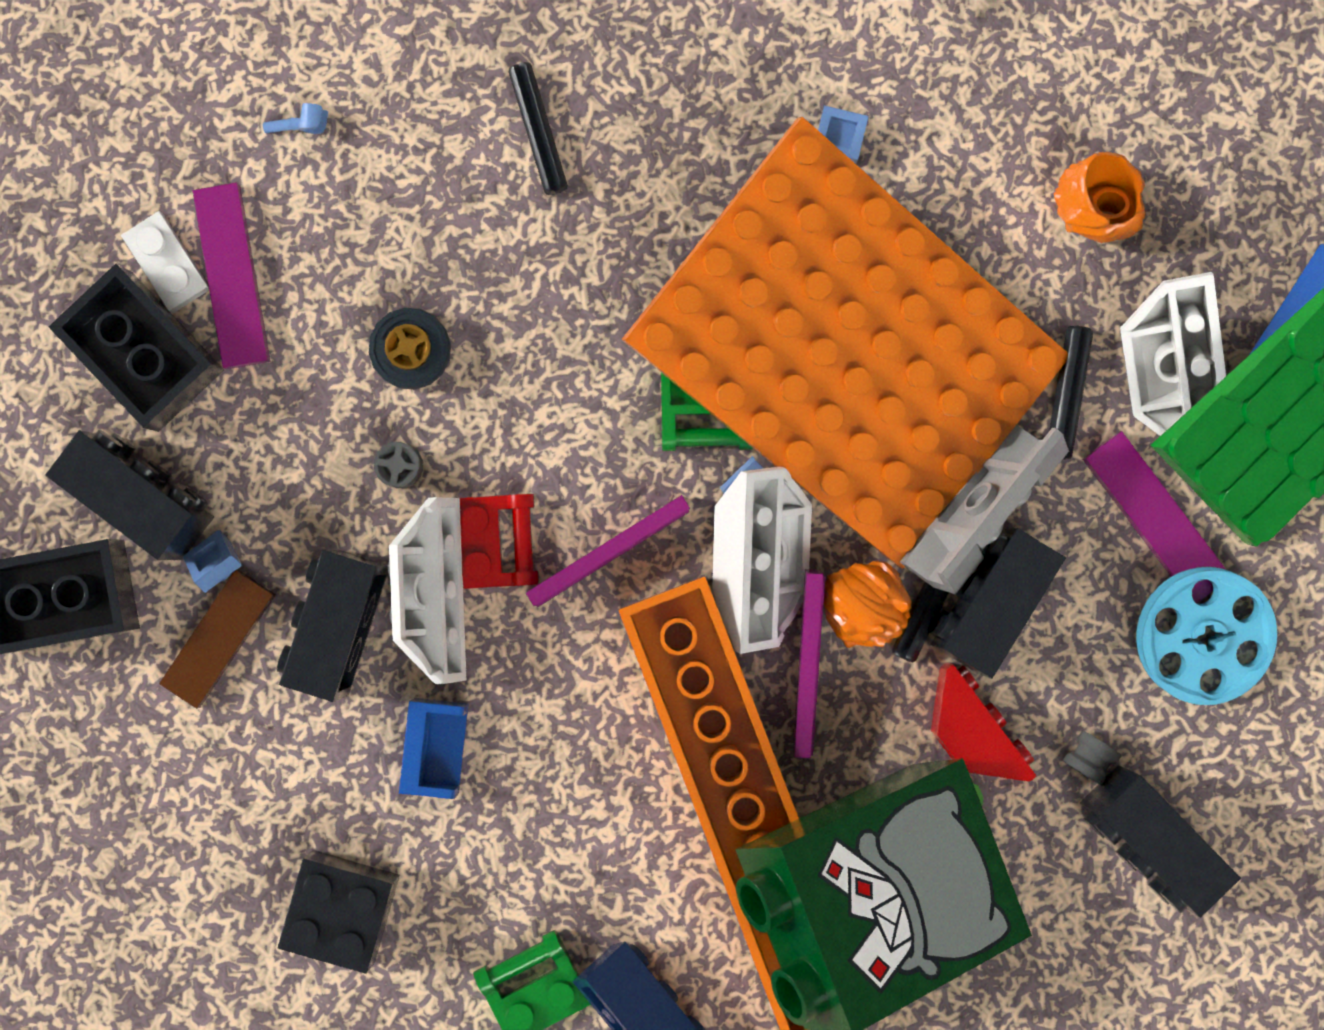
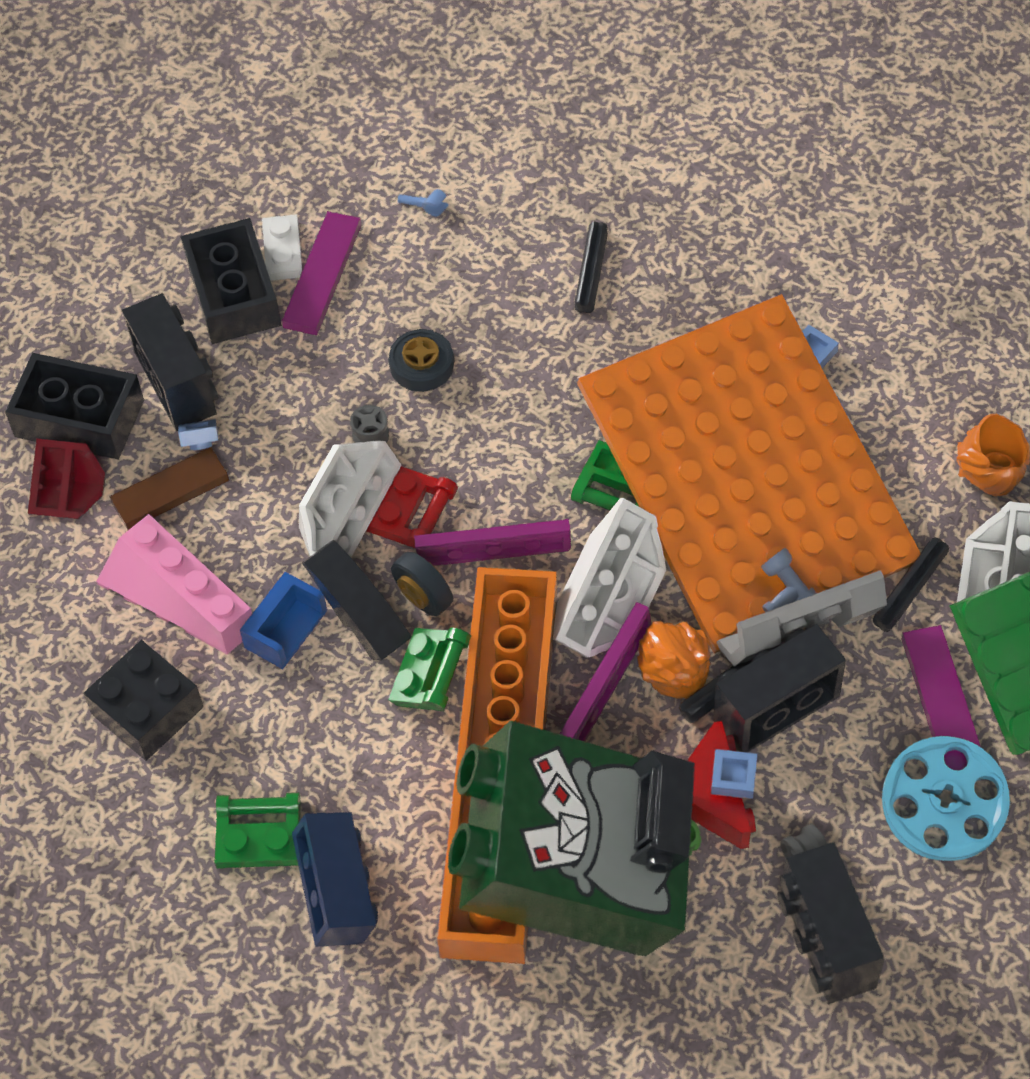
camera: 25 degrees right, 30 degrees down
(98, 689) = (64, 479): none -> dark red slope
(282, 757) = (171, 582): none -> bright pink wedge
(332, 624) = (259, 498): black brick -> none
(504, 701) = (356, 601): none -> black slope
(562, 644) = (422, 583): none -> black wheel
(611, 740) = (428, 668): none -> green plate
(935, 455) = (795, 588): none -> sand blue piece
(968, 843) = (663, 811): none -> black window
(999, 730) = (734, 773): none -> medium blue plate

